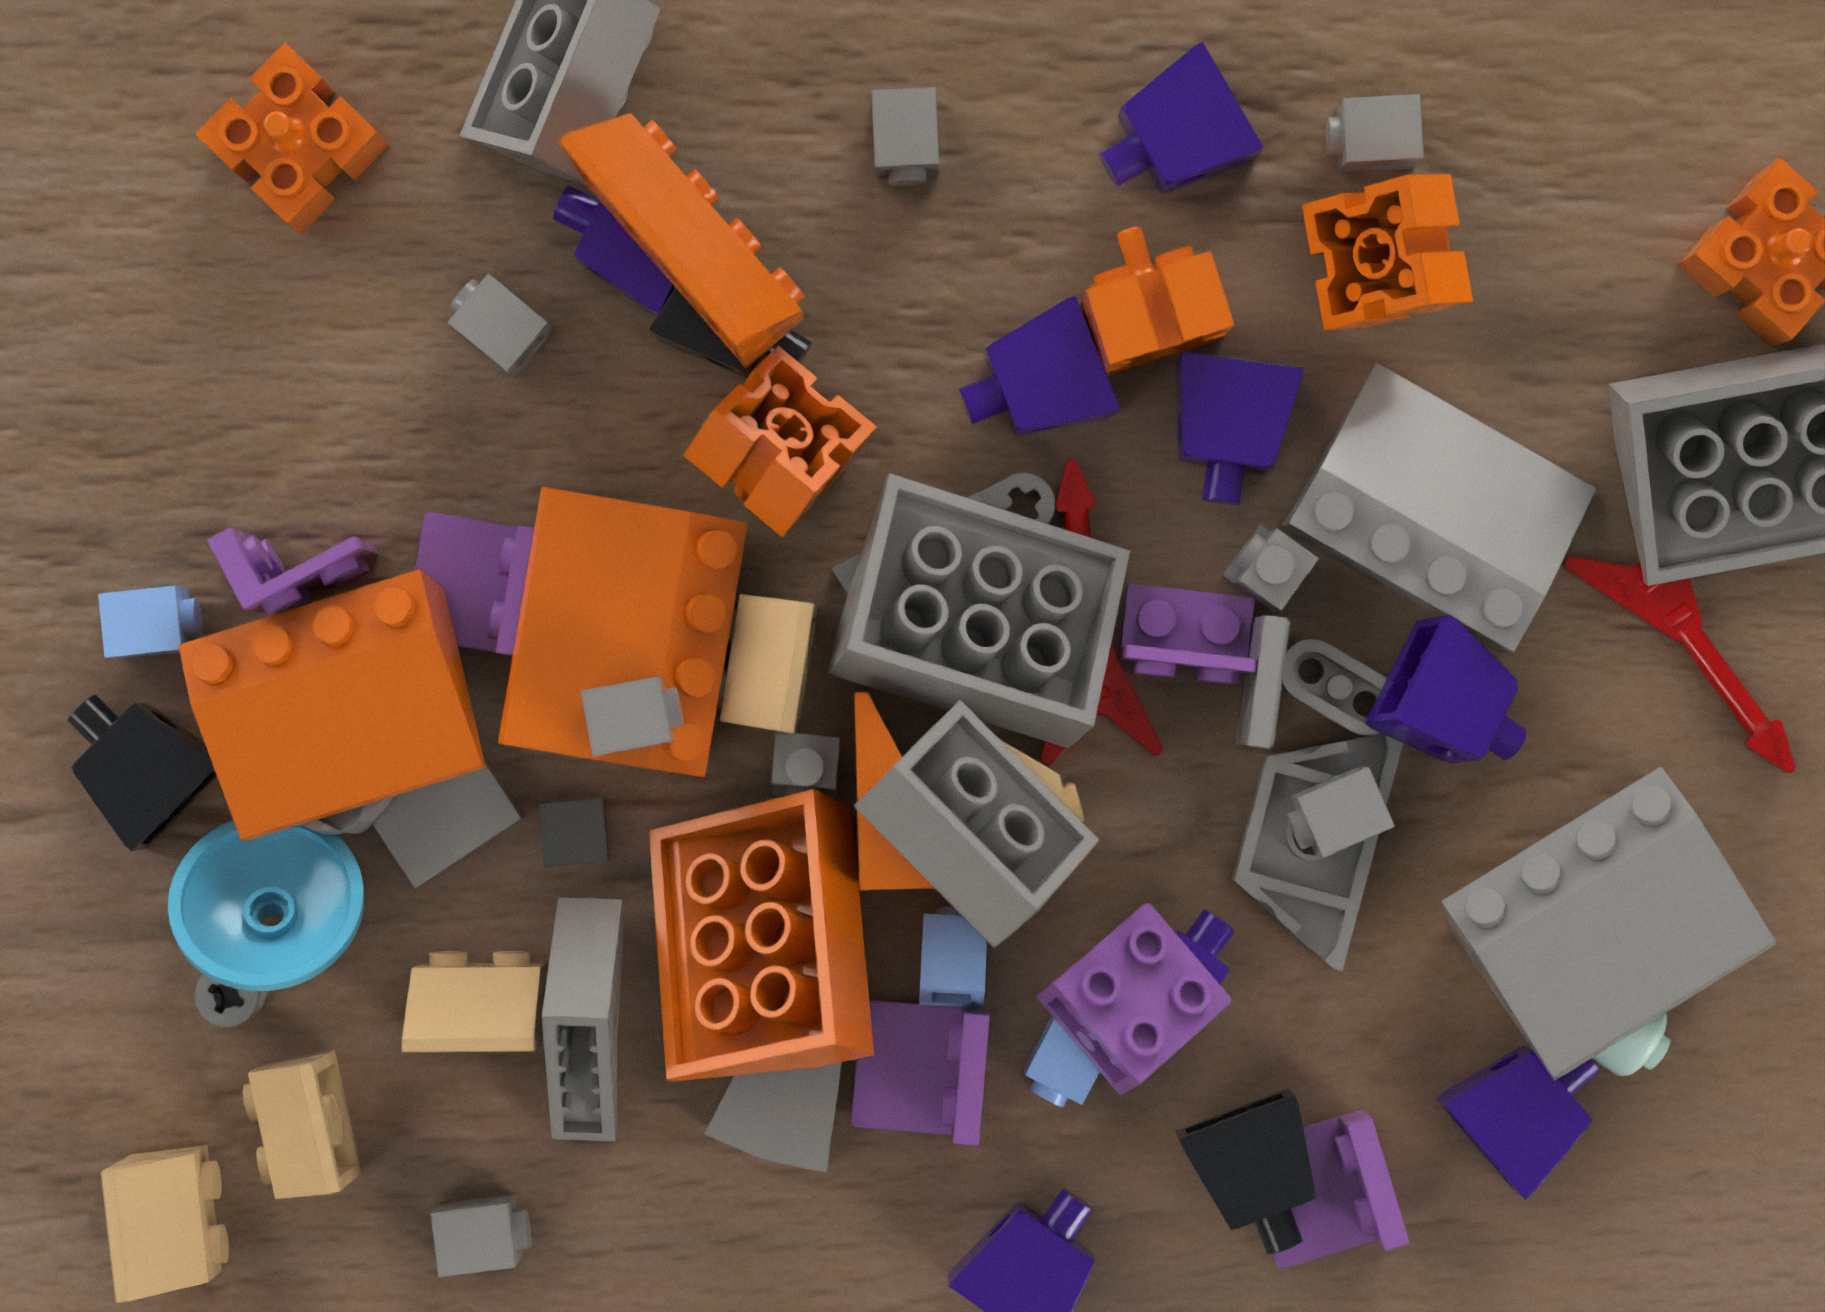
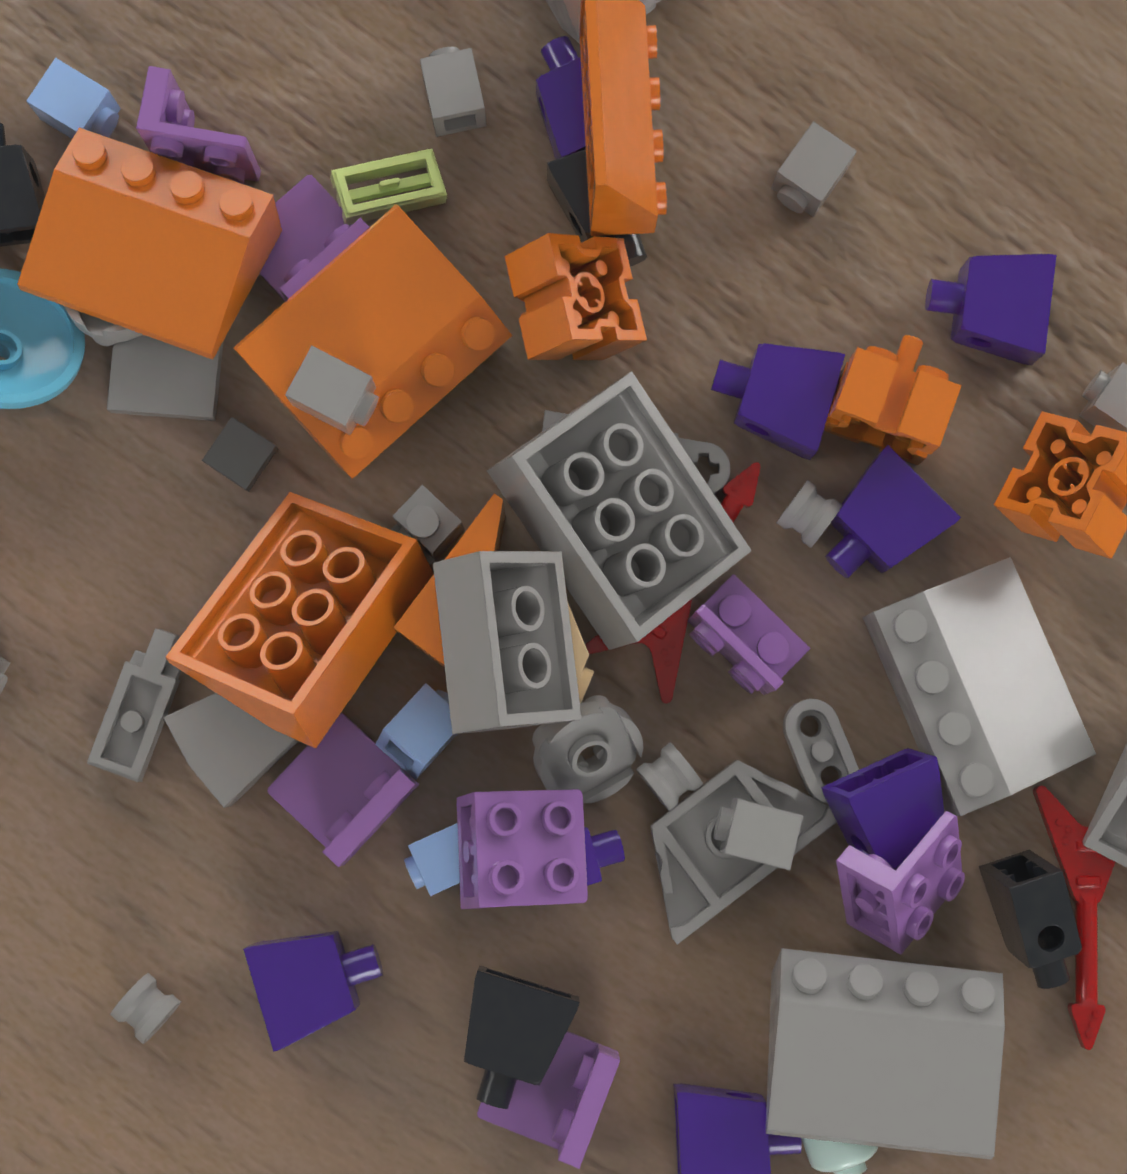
camera: 30 degrees right, 5 degrees down
(475, 1004) = (82, 513): tan slope -> none
(480, 508) = (385, 167): none -> yellowish green tile
(583, 1018) = (142, 574): light grey arch -> none
(672, 1145) = (137, 710): none -> light grey hinge
(767, 663) = (455, 439): tan slope -> none
(1141, 831) = (606, 772): none -> light grey plate
(1156, 471) = (809, 514): none -> light grey wheel
(1215, 821) = (669, 776): none -> light grey wheel
(1263, 689) = (774, 704): light grey tile -> none
(1270, 567) = (836, 635): light grey brick -> none
(1522, 773) = (902, 902): none -> medium lavender bracket
(1648, 688) = (1033, 914): none -> black torso

